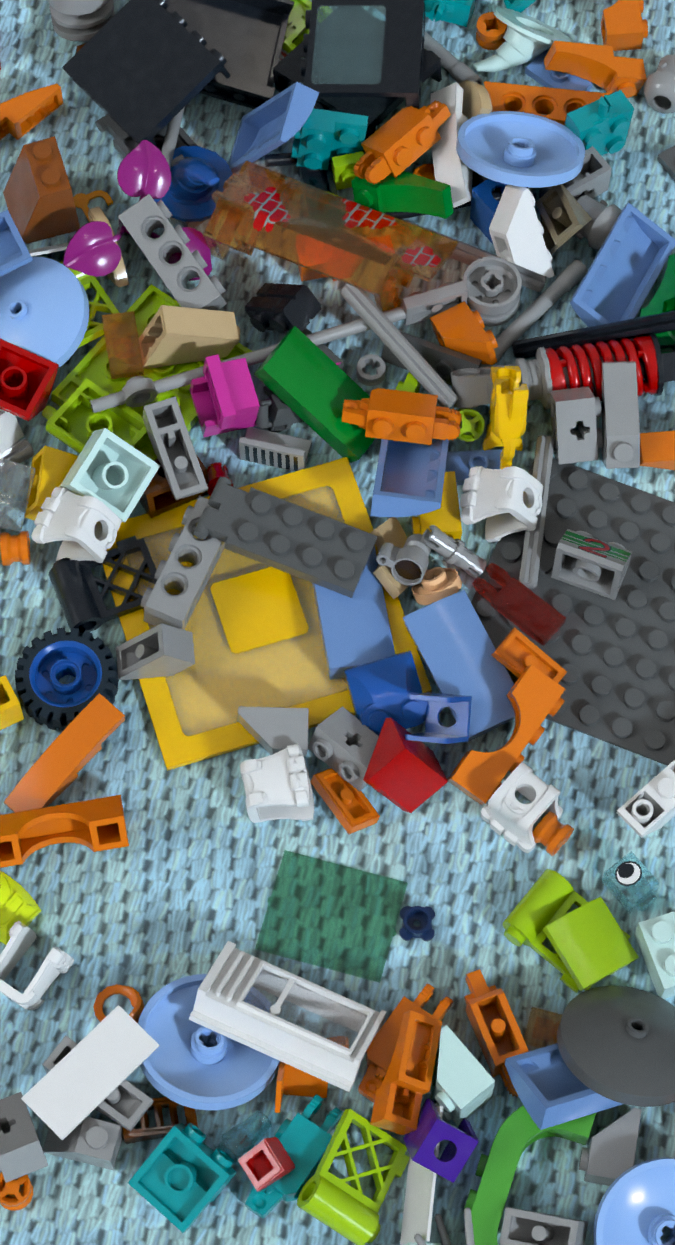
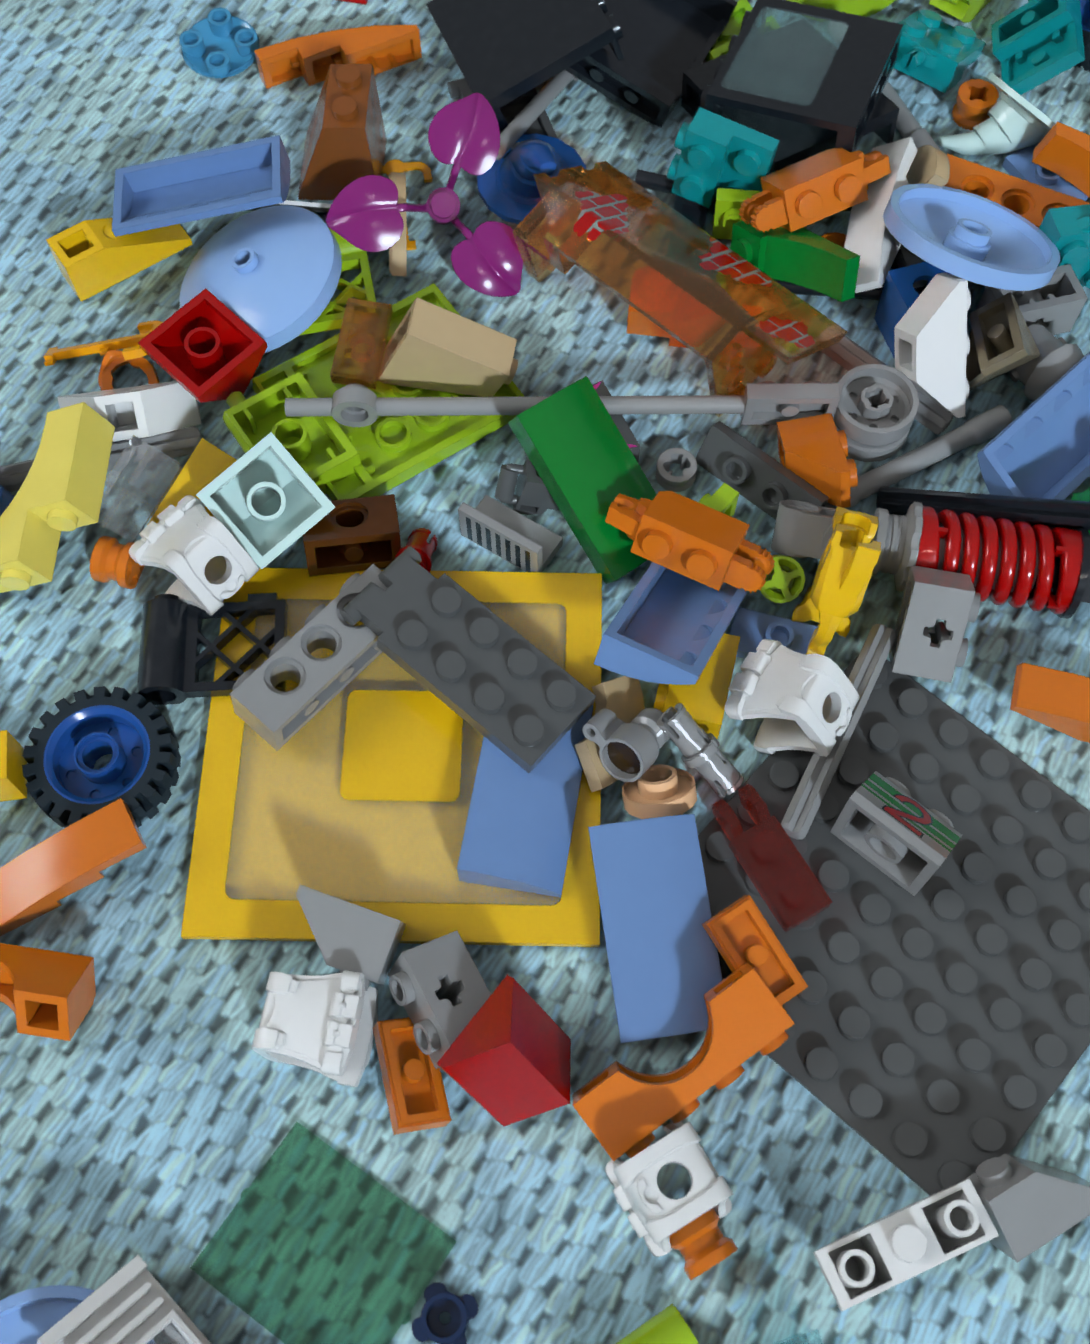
camera: 20 degrees right, 0 degrees up
(140, 222) = (441, 198): light grey brick -> none
(155, 653) = (230, 765): light grey slope -> none
(174, 448) = (363, 489): light grey slope -> none
(224, 396) = (462, 444): dark pink plate -> none
(272, 124) = (661, 116): medium blue slope -> none
(282, 307) = (586, 351): black brick -> none
(382, 691) = (530, 933): blue slope -> none
(399, 345) = (721, 445): light grey axle -> none
(434, 730) = (580, 1027): piece -> none
(620, 415) = (1003, 629): light grey slope -> none

